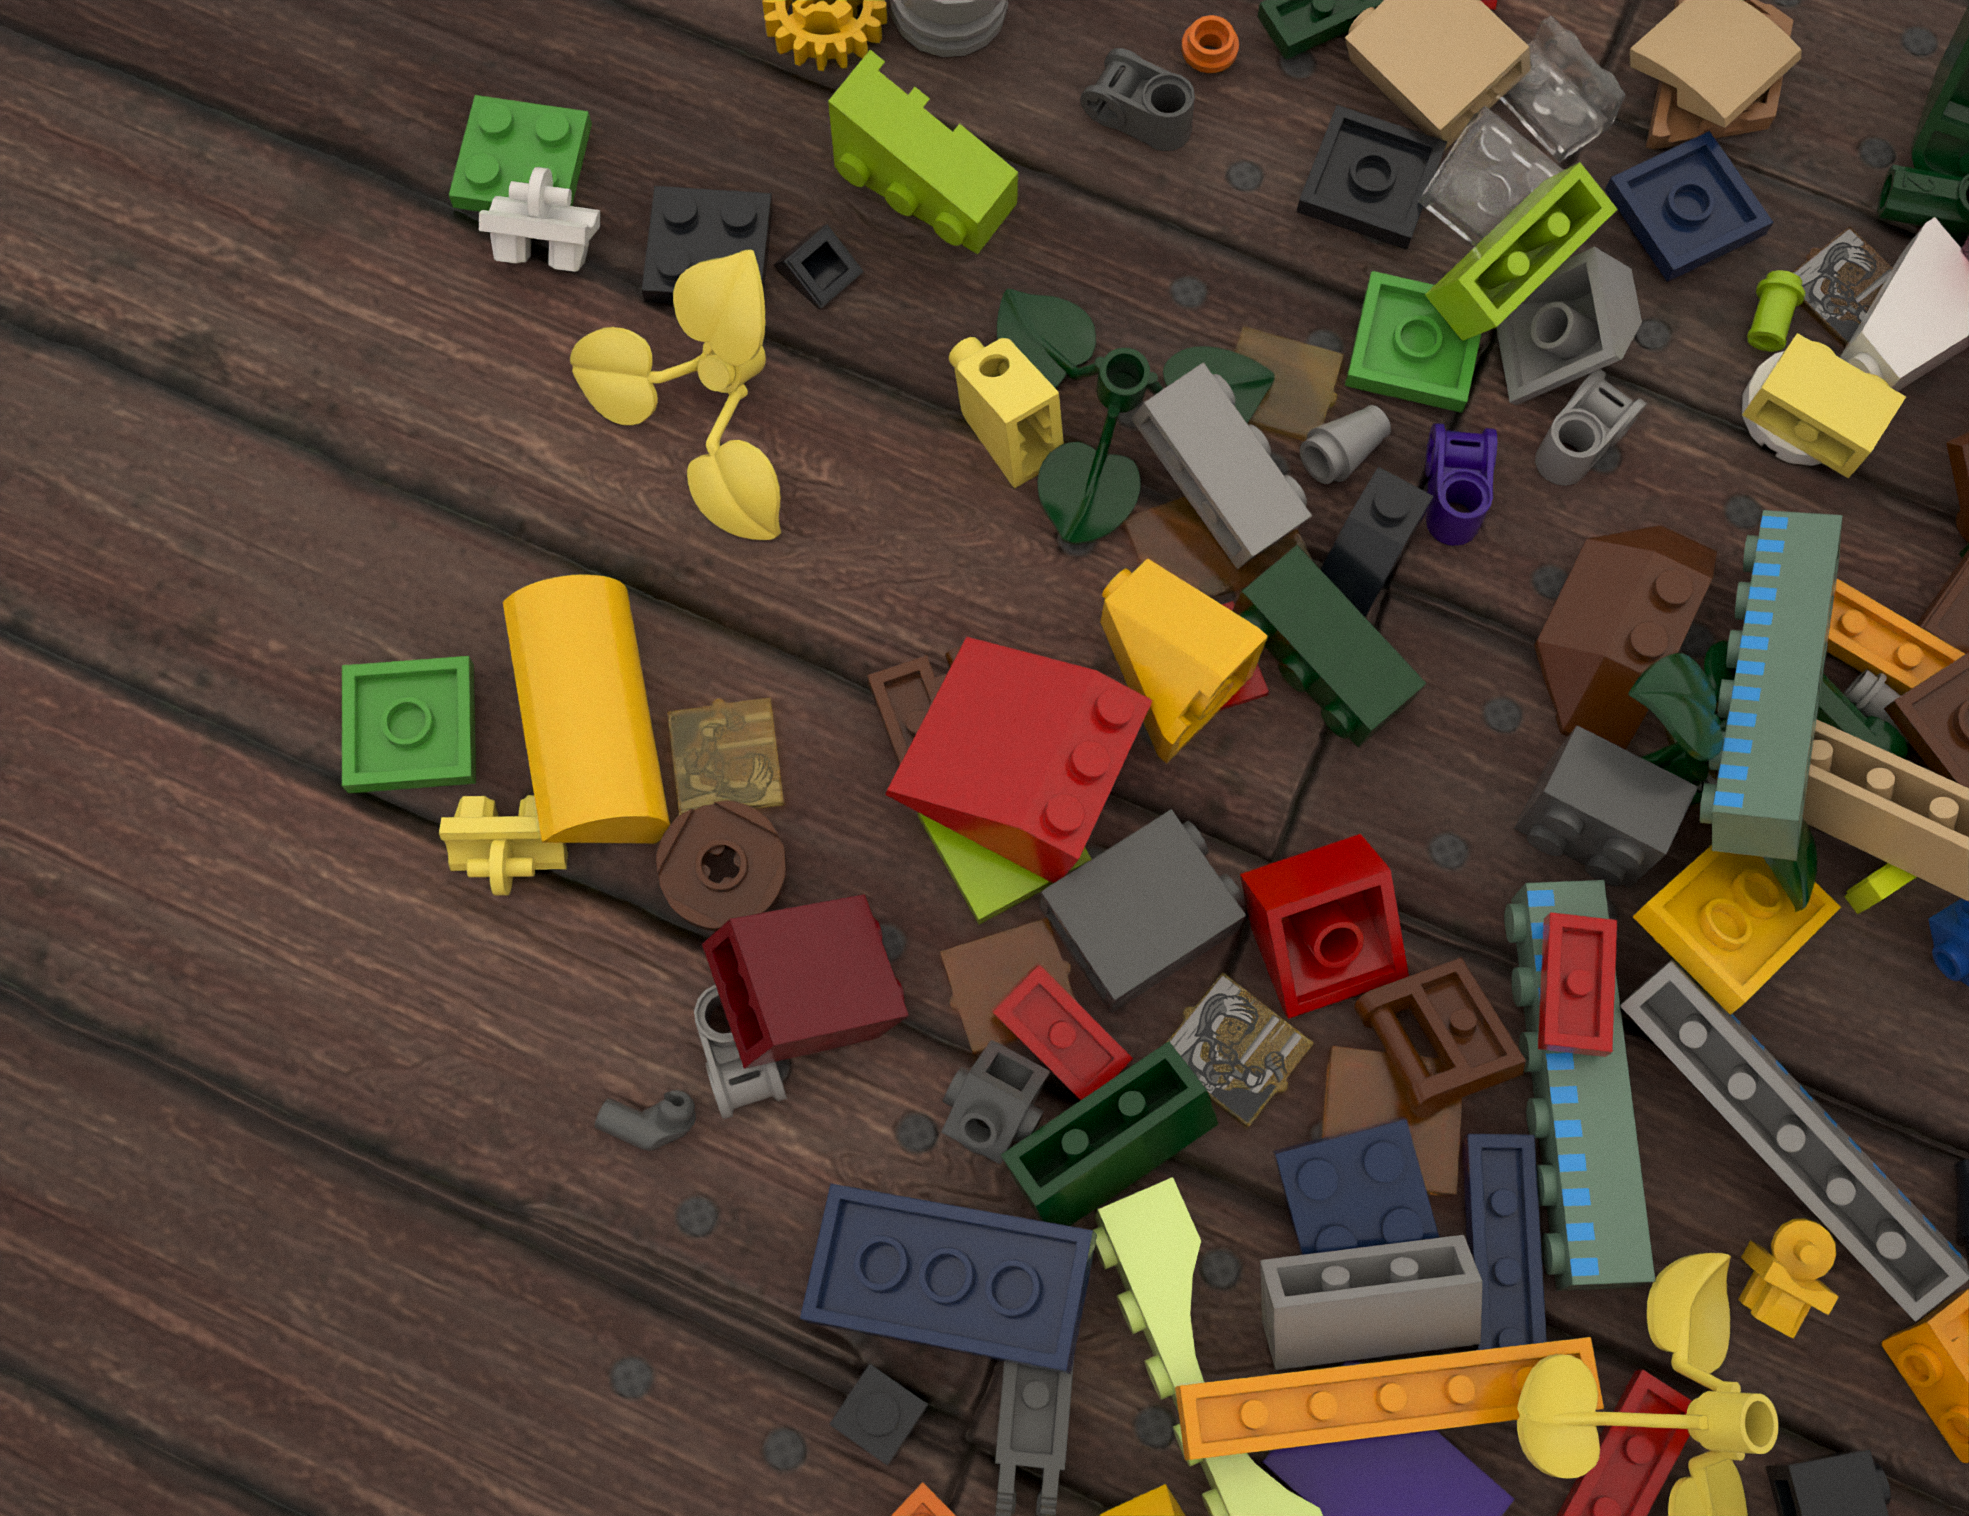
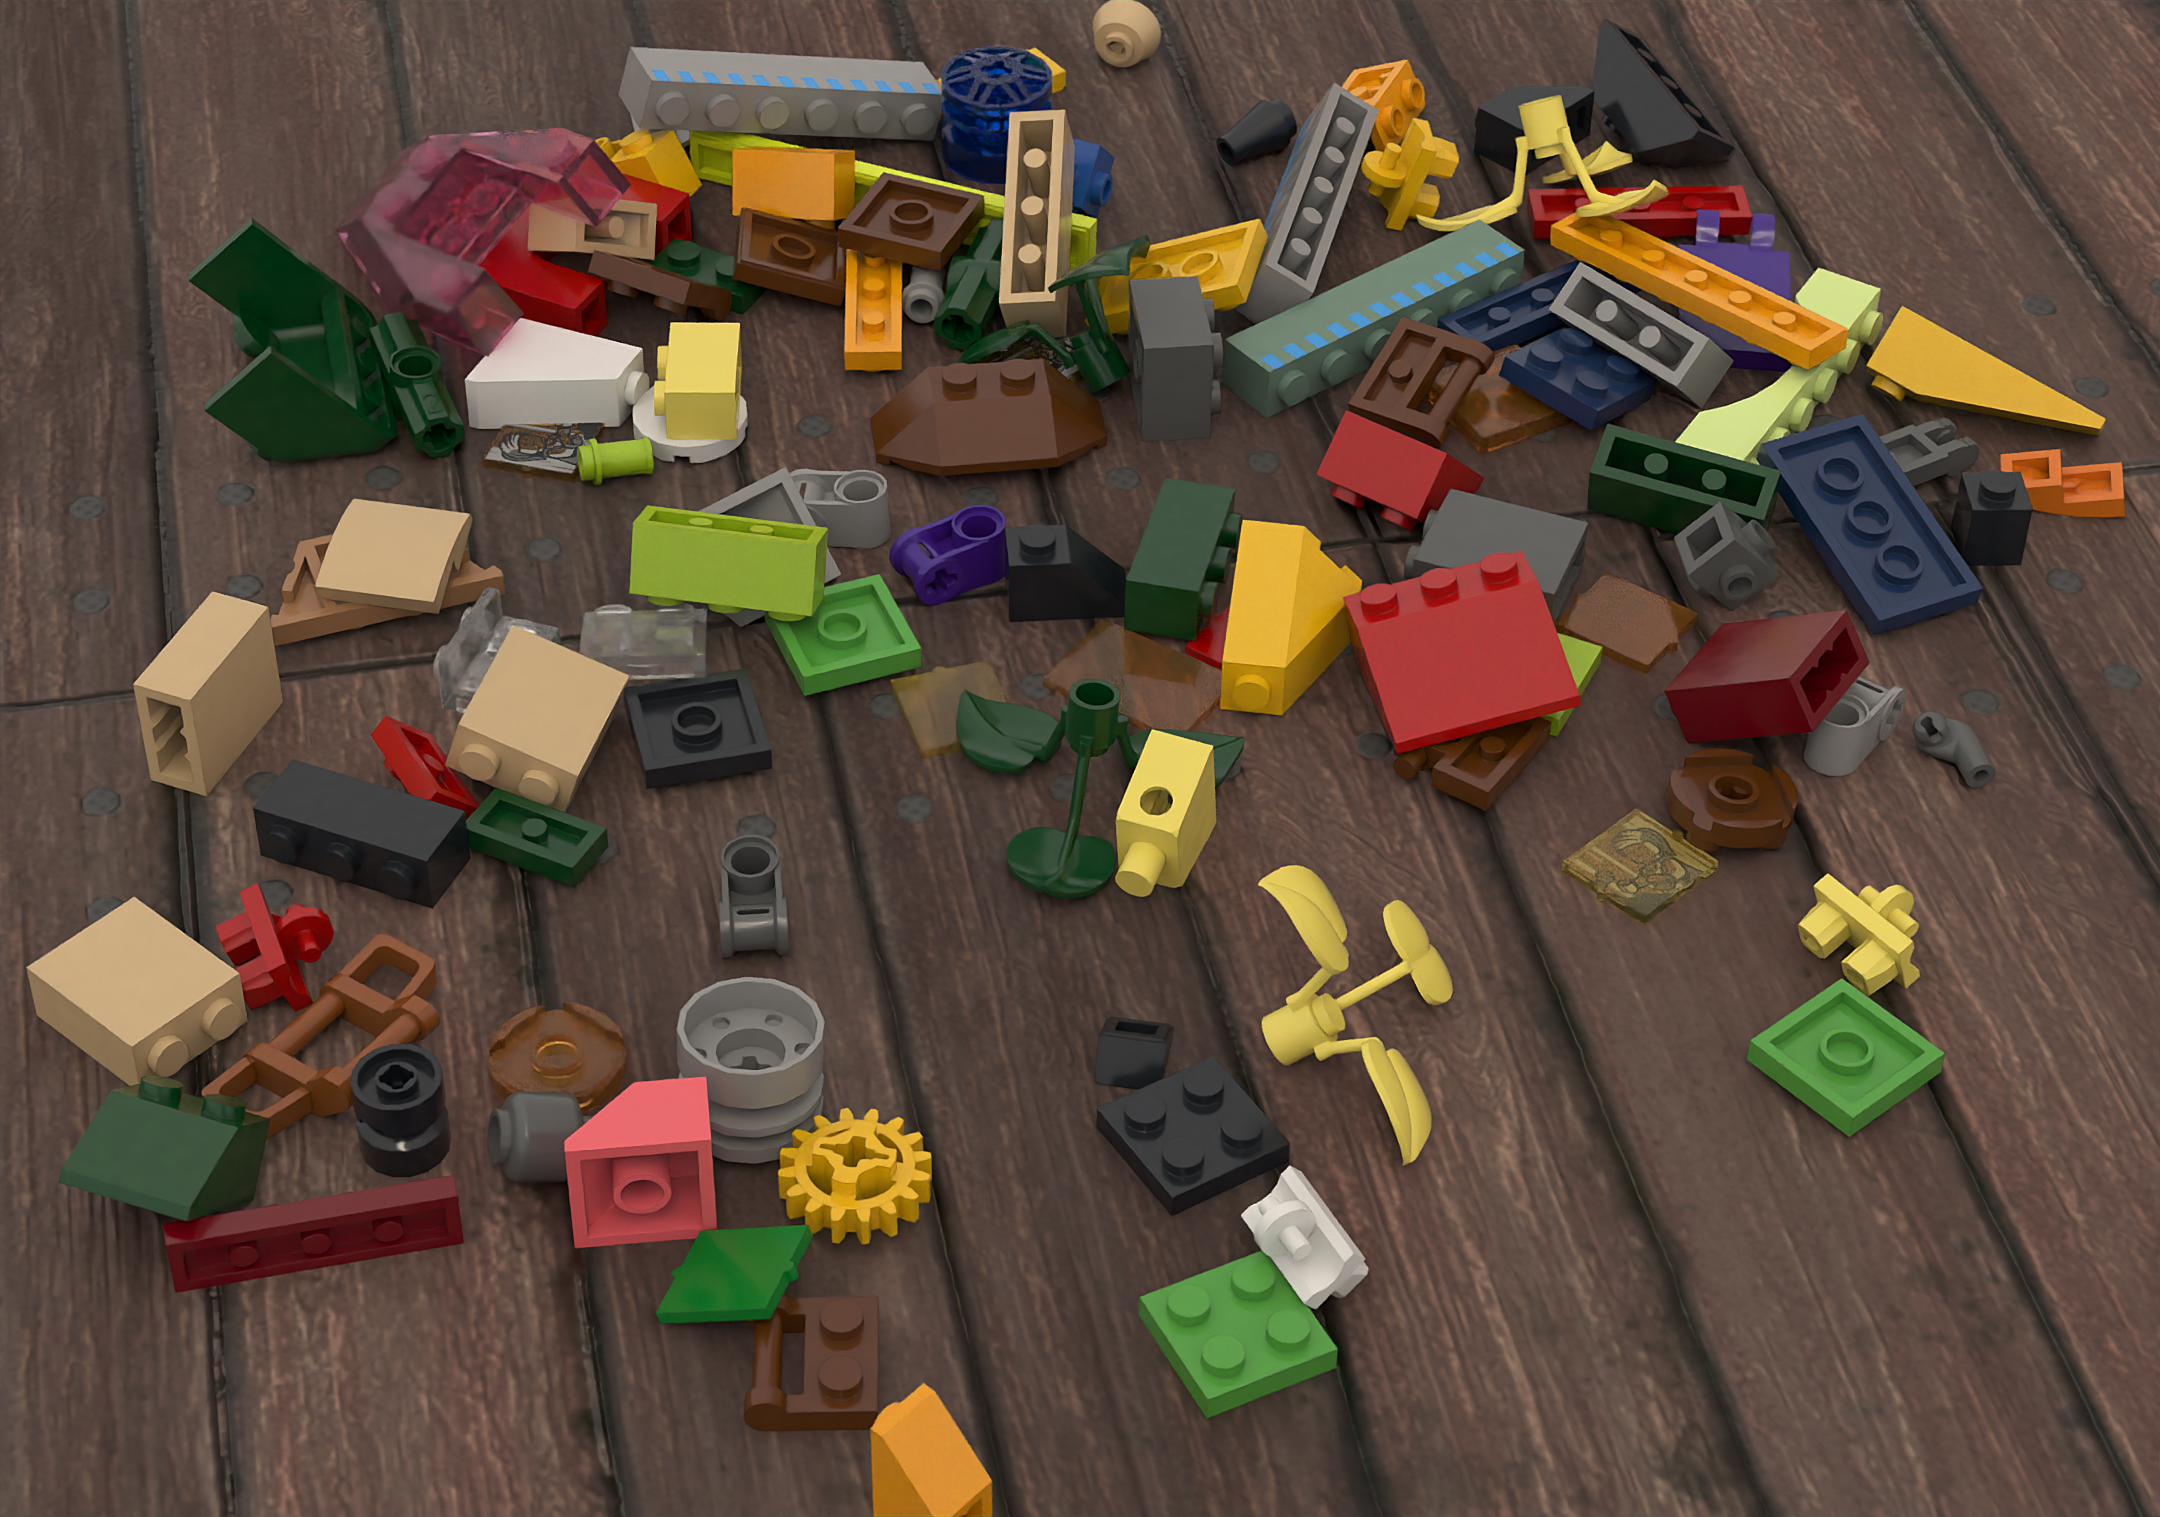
camera: 125 degrees left, 30 degrees down
(585, 712) = (1714, 911): yellow brick -> none
(916, 161) = (974, 1010): lime wedge -> none
(1061, 1033) = (1637, 559): red plate -> none
(1214, 32) = (640, 895): orange plate -> none
(1221, 464) = (1101, 637): light grey brick -> none
(1238, 1049) = (1539, 484): piece -> none
(1343, 444) = (983, 632): light grey cone -> none
(1577, 984) = (1325, 305): red plate -> none
(1688, 206) = (553, 539): dark blue plate -> none
(1775, 685) = (987, 287): sand green brick -> none

